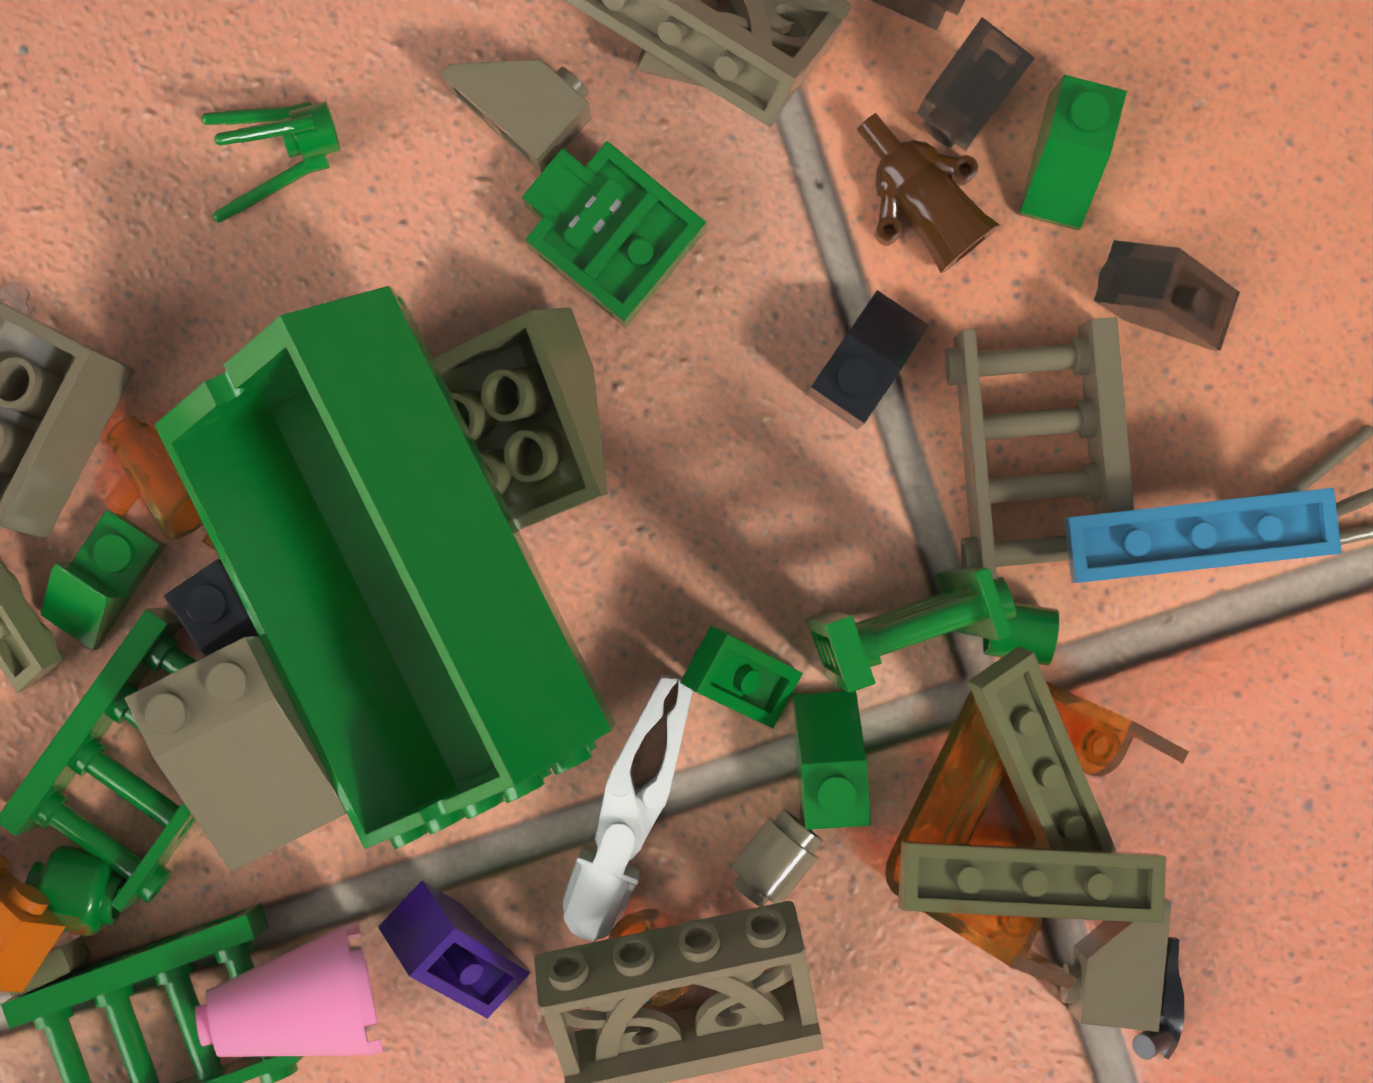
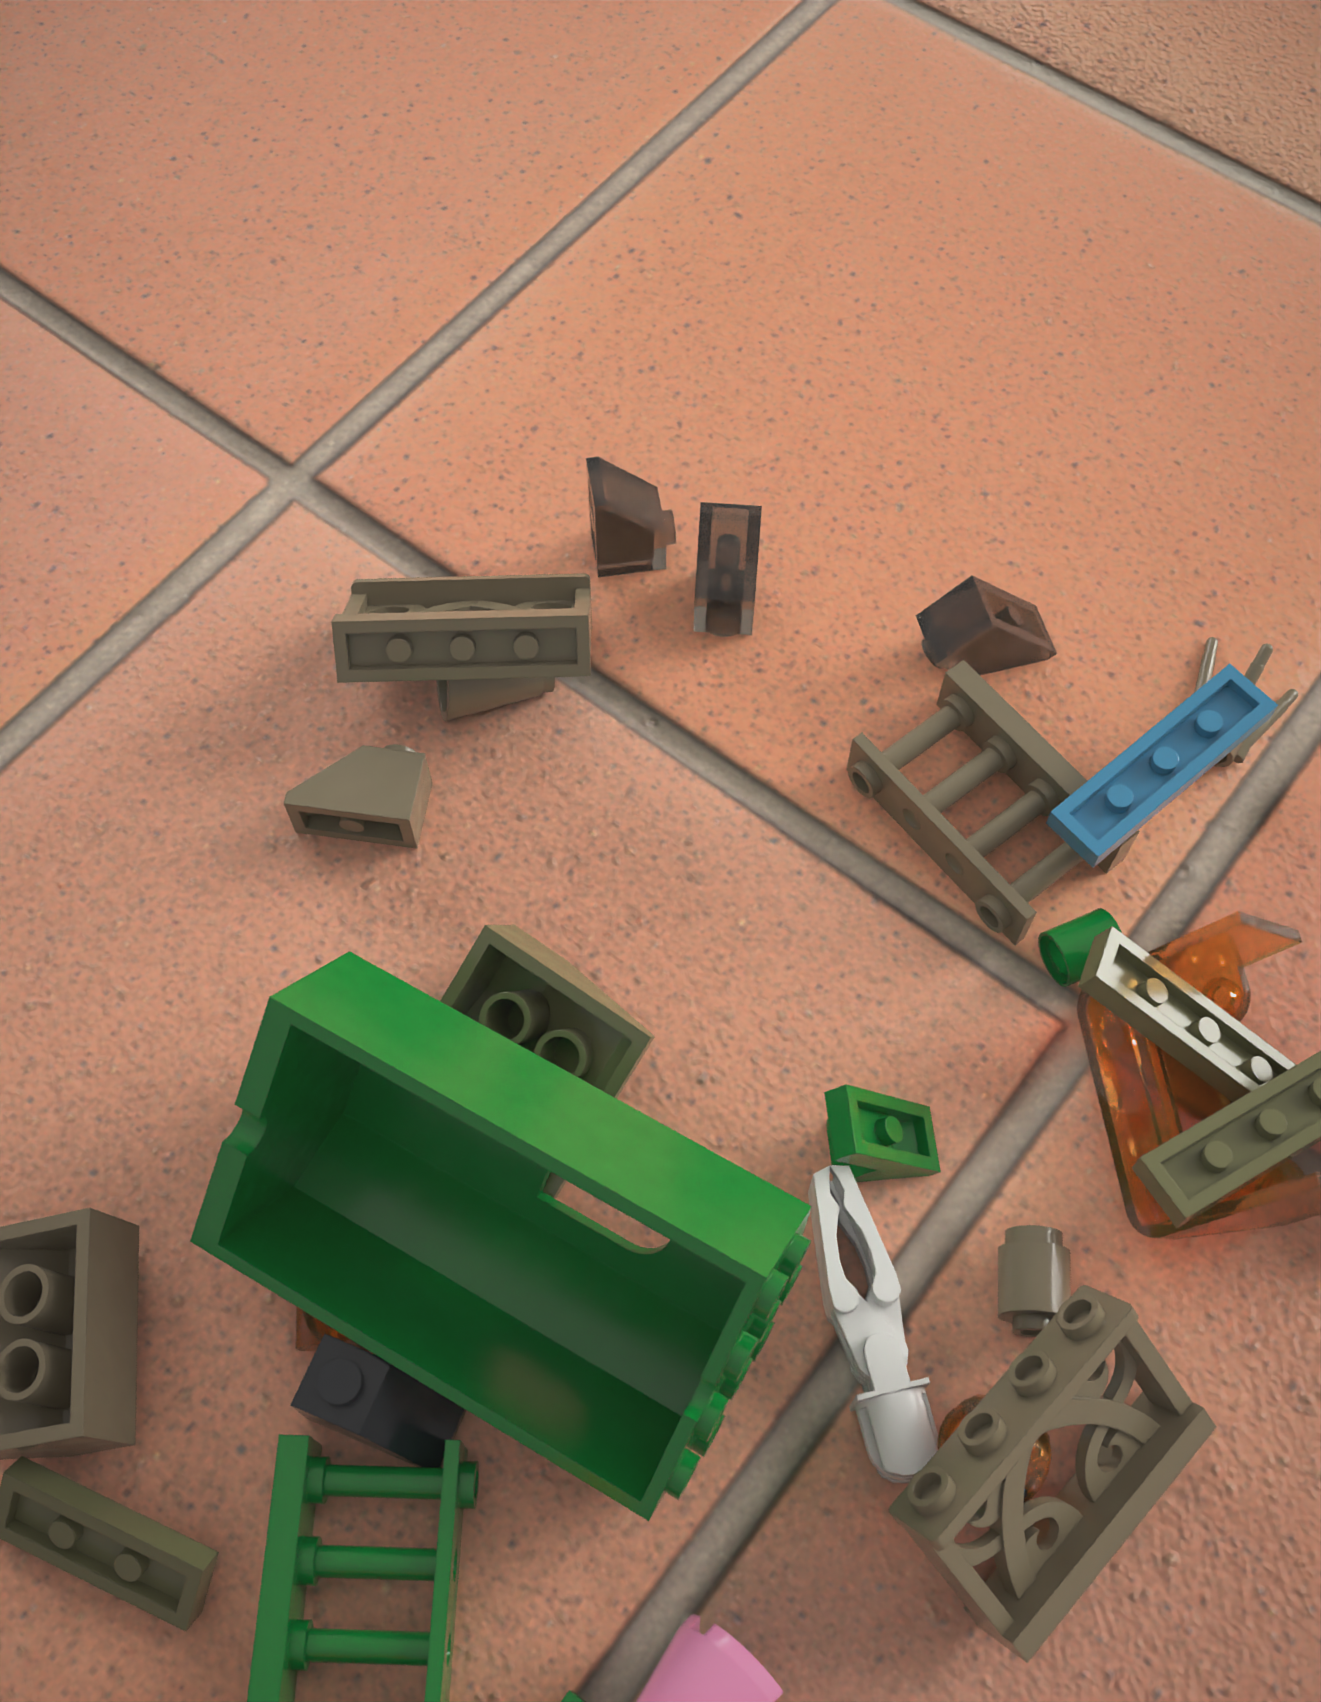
camera: 30 degrees left, 25 degrees down
(101, 579) = (212, 1455): green slope -> none
(151, 477) = (218, 1306): clear orange piece -> none
(236, 752) = (462, 1506): dark tan slope -> none
(305, 132) = (186, 928): green plant -> none
(452, 950) = (800, 1587): dark purple slope -> none
(609, 229) = (506, 845): green piece -> none
(831, 760) = (1014, 1159): green slope -> none
(867, 360) = (793, 825): black slope -> none
(915, 180) = (748, 672): reddish brown piece -> none
(968, 603) = (973, 983): green fence -> none
(1071, 151) = (833, 578): green slope -> none

